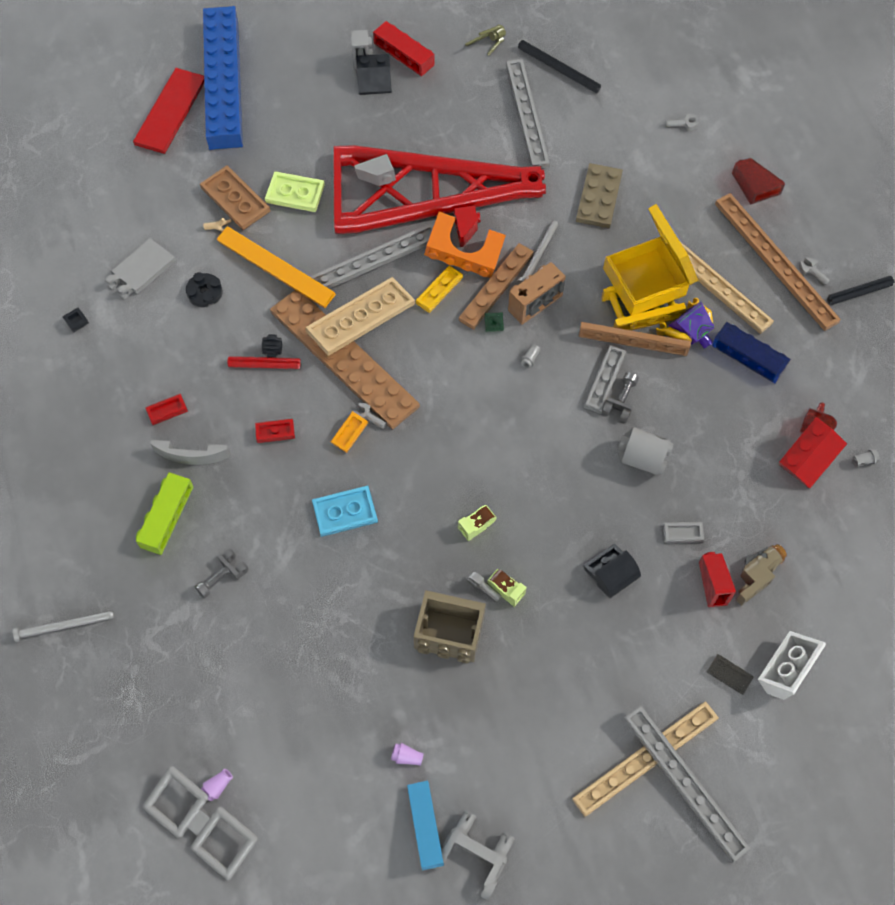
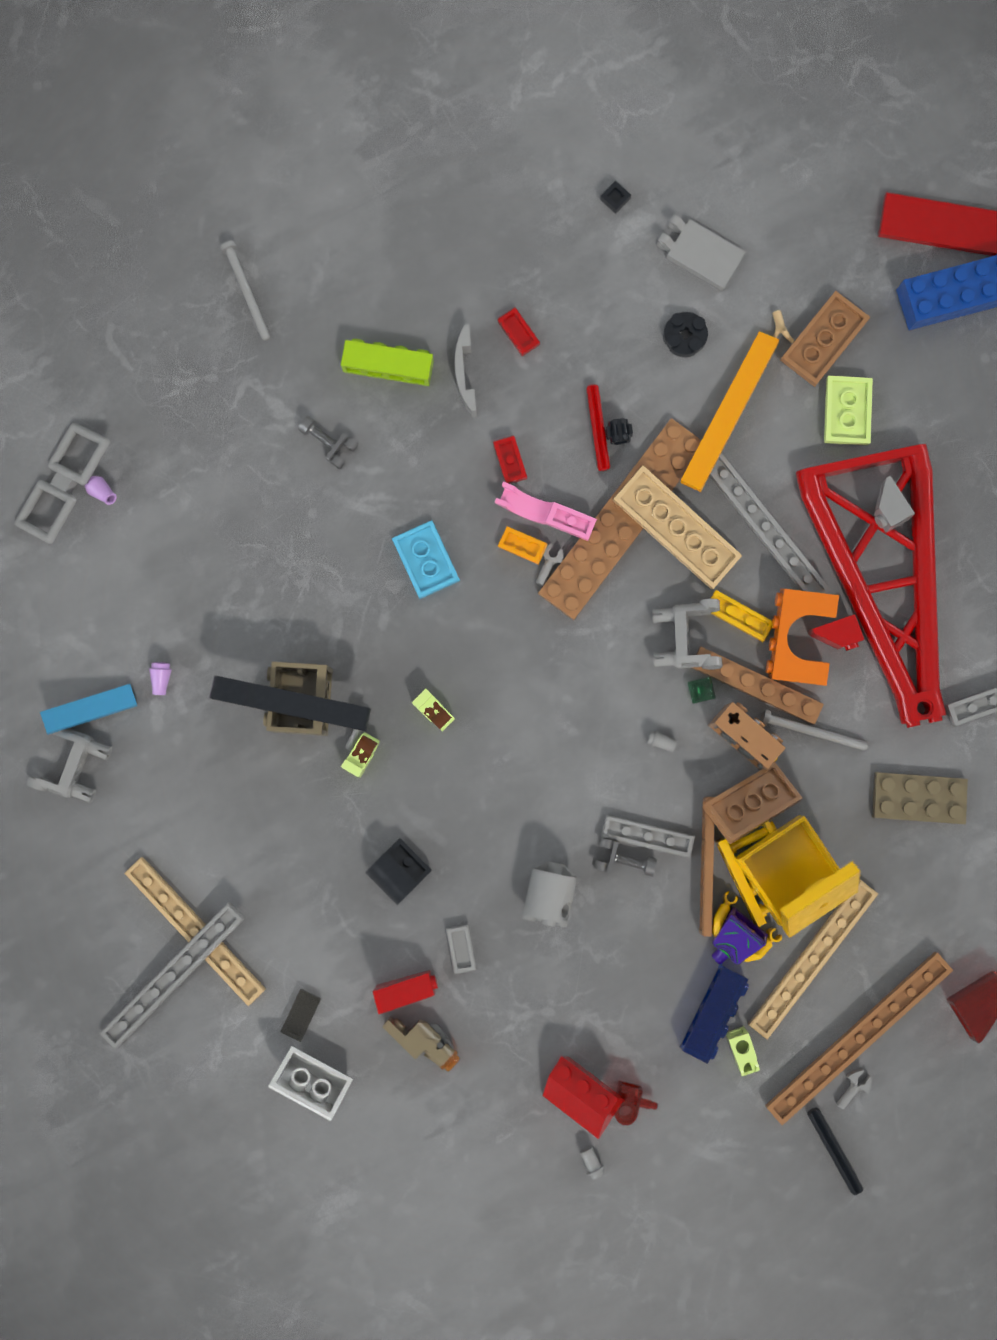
camera: 85 degrees right, 20 degrees up
(327, 408) = (546, 512): none -> bright pink piece
(454, 623) = (290, 703): none -> black beam
(464, 327) = (681, 656): none -> light grey connector
(590, 297) = (752, 803): none -> medium nougat plate
(782, 336) = (743, 1051): none -> yellowish green leg

